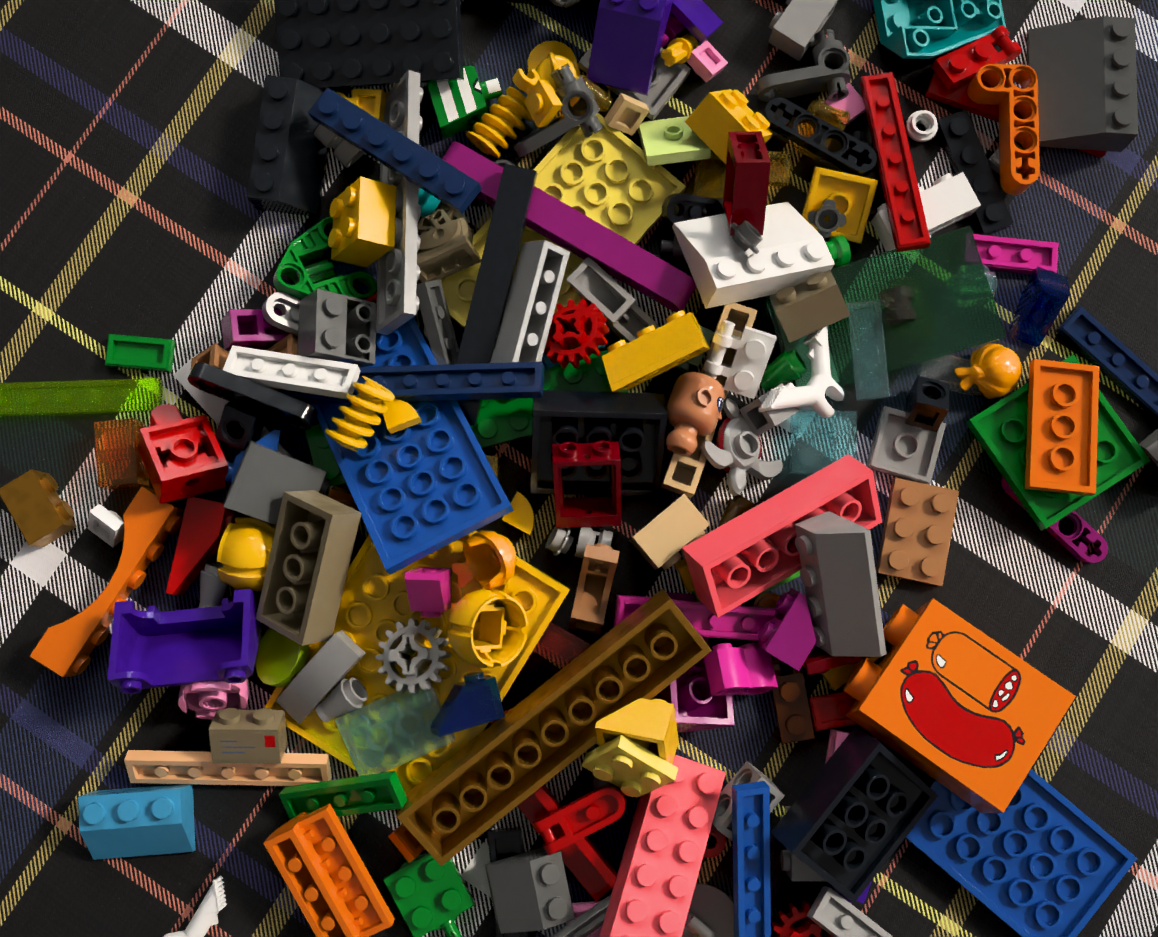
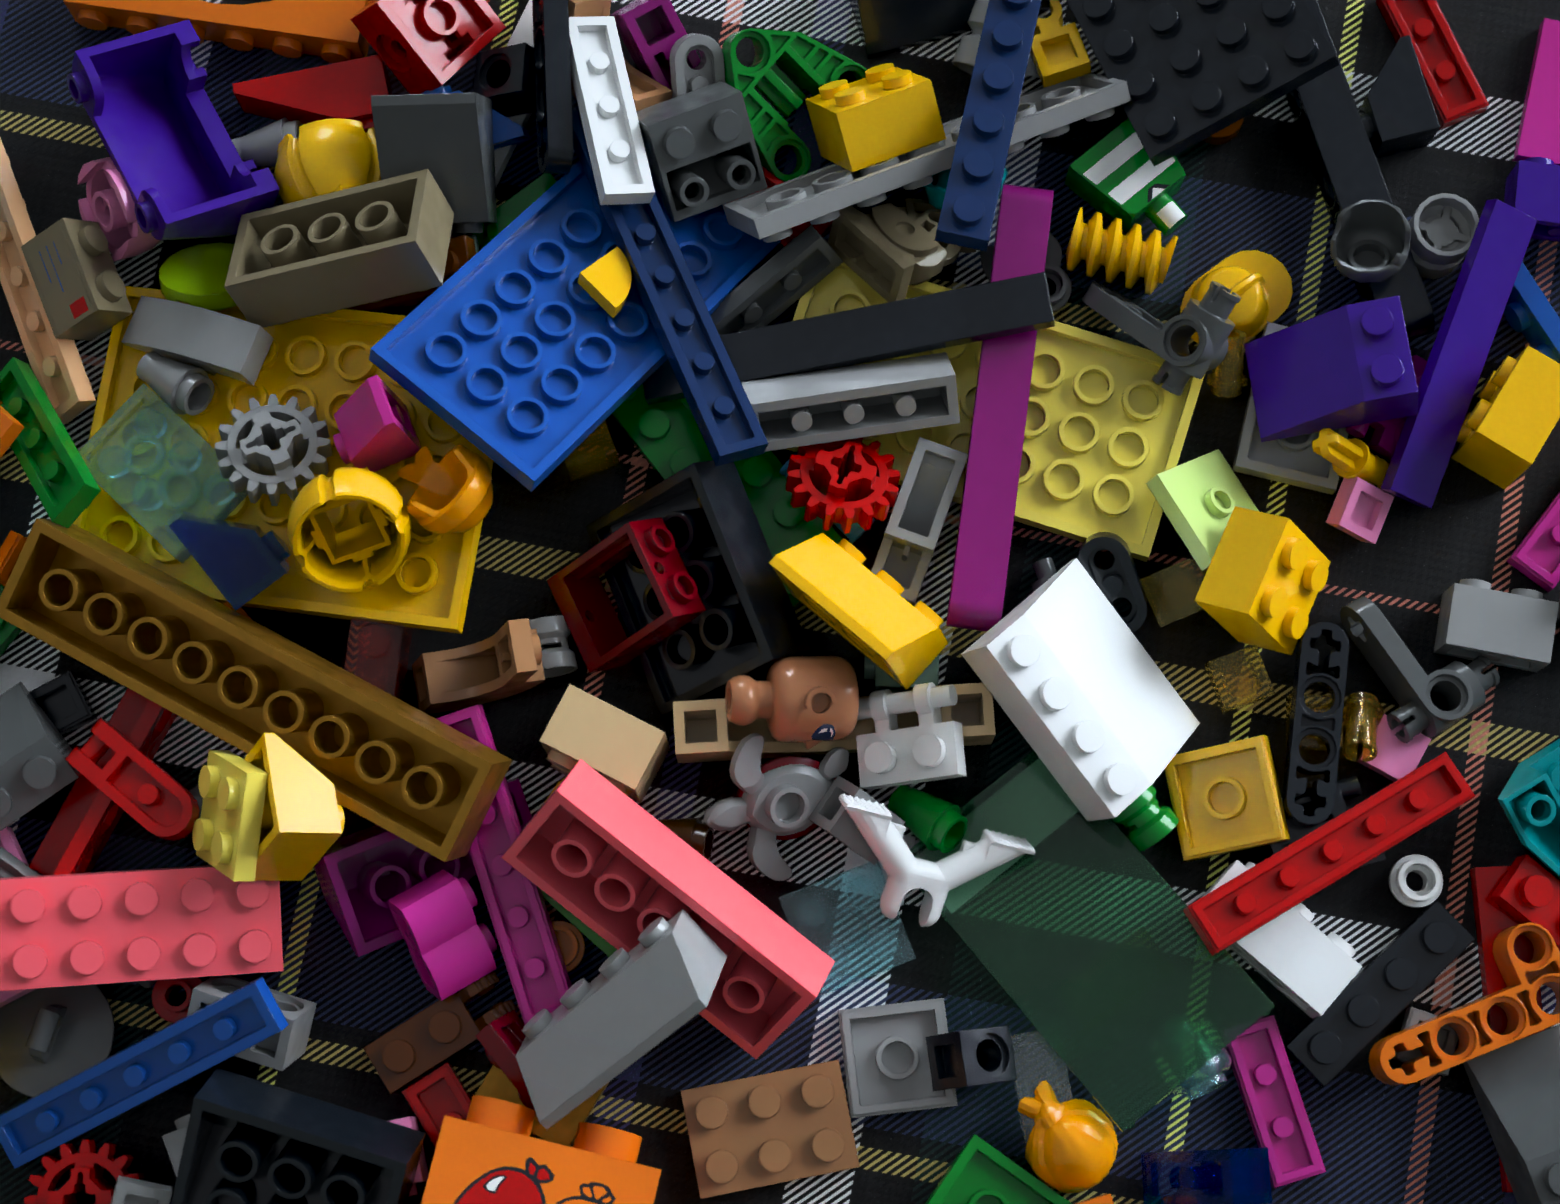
camera: 70 degrees right, 5 degrees down
(360, 414) = (583, 227): yellow piece -> none
(522, 516) = (549, 525): yellow tile -> none
(541, 97) = (1172, 286): yellow plate -> none
(559, 541) = (532, 597): light grey plate -> none
(626, 114) = (1216, 423): tan plate -> none
(746, 179) = (1172, 628): dark red window -> none
(746, 236) = (1087, 660): dark grey plate -> none
(790, 632) = (524, 980): magenta slope -> none
(809, 305) = (1038, 811): dark tan brick -> none
(827, 209) = (1177, 788): dark grey plate -> none
(868, 350) = (1011, 929): clear light blue plate -> none
(898, 305) = (1097, 944): clear smoke wheel -> none

